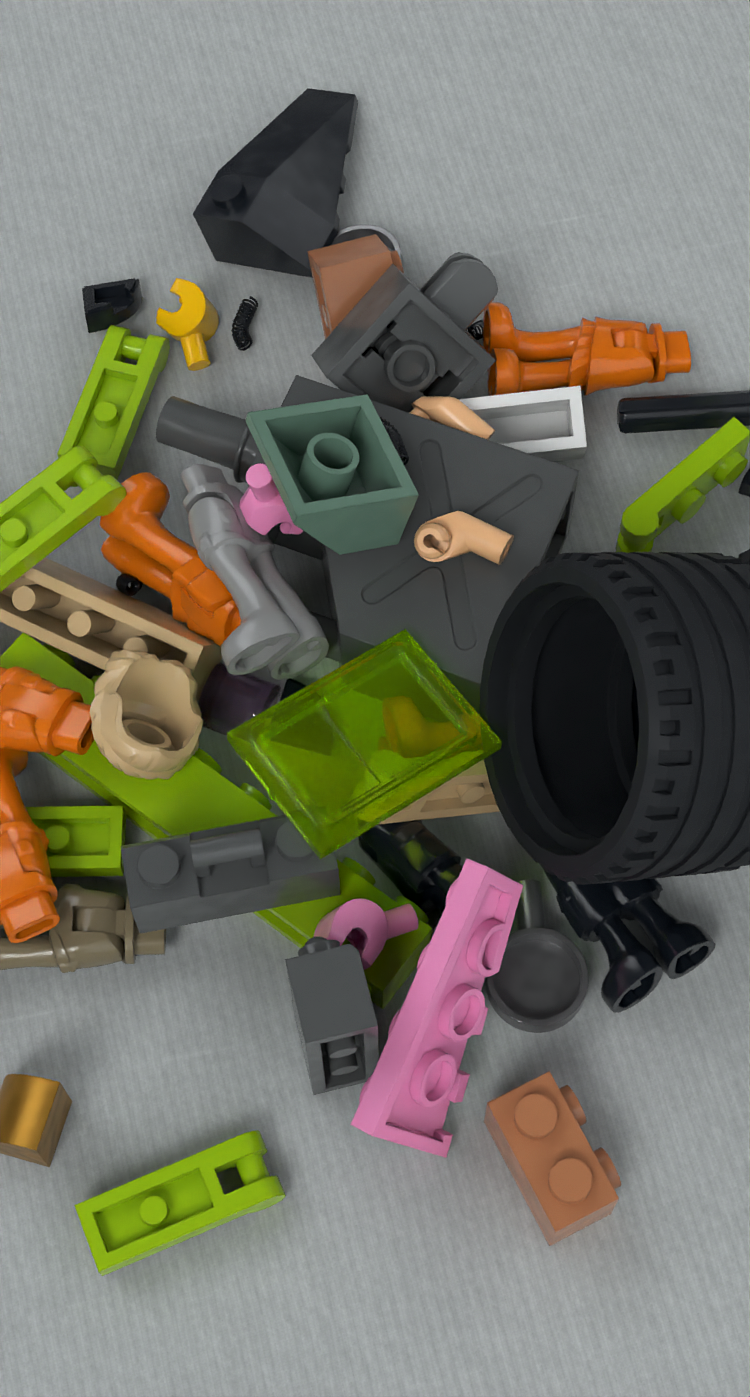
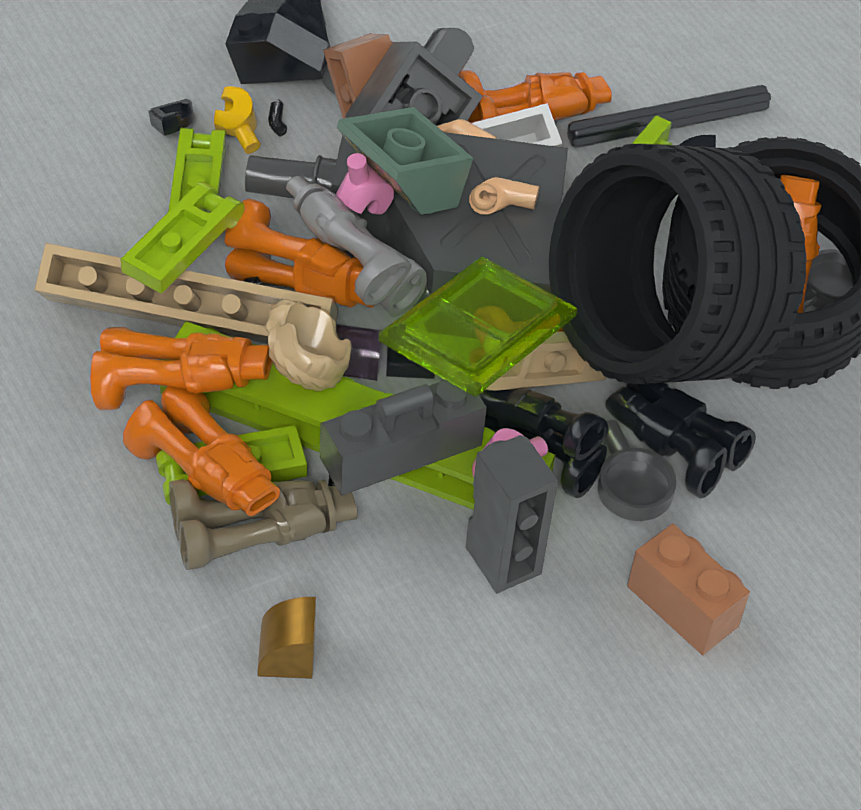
camera: 20 degrees left, 15 degrees down
(177, 1202) = (421, 674): lime plate -> none
(443, 1008) = (587, 494): bright pink wing -> none

